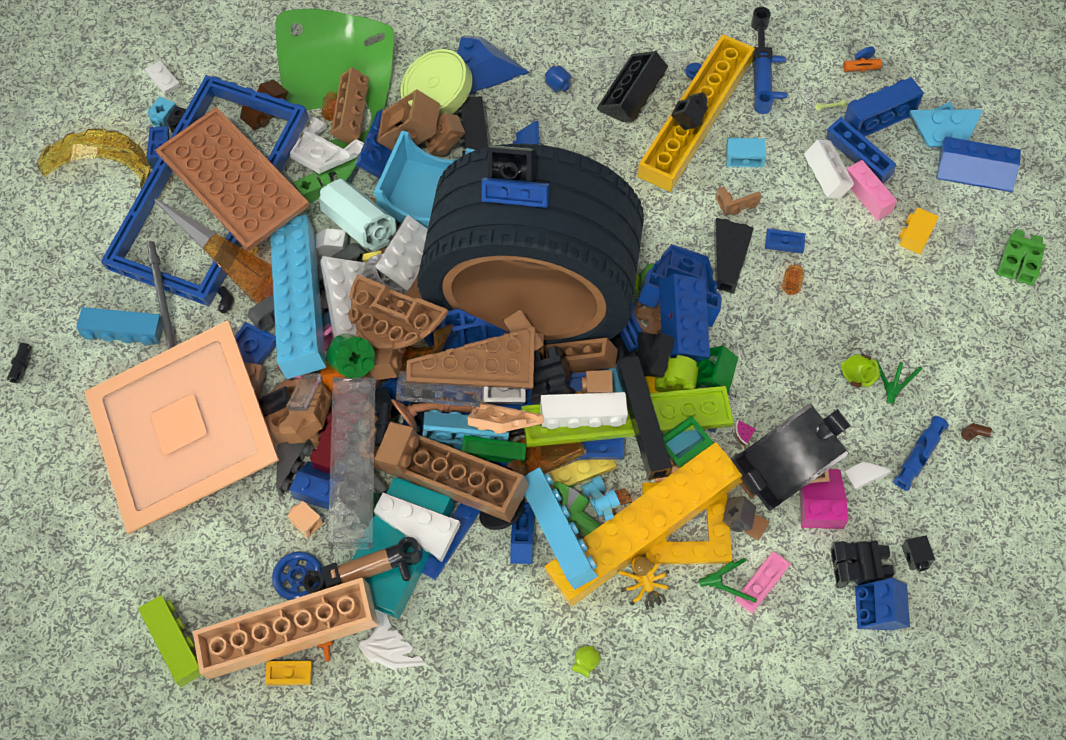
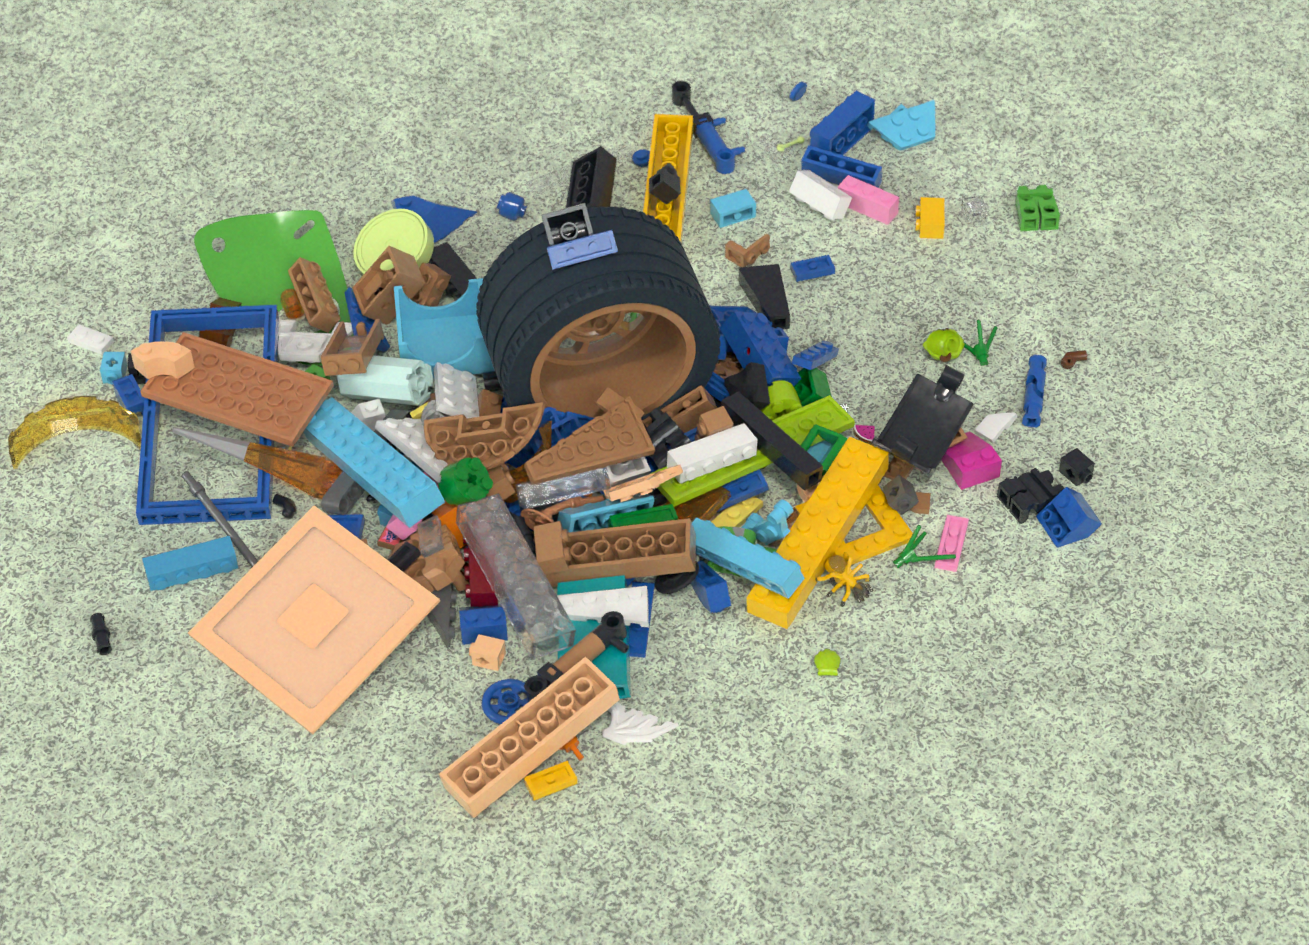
camera: 25 degrees left, 15 degrees down
(170, 640) = (416, 798): lime brick -> none
(181, 128) = (162, 359): none -> light nougat brick
(338, 177) = (351, 353): none -> medium nougat door
(734, 338) = (815, 355): none -> blue plate
(793, 279) = (839, 296): clear orange brick -> none
(873, 65) = (800, 101): orange pin -> none
(978, 164) = (954, 146): slope -> none

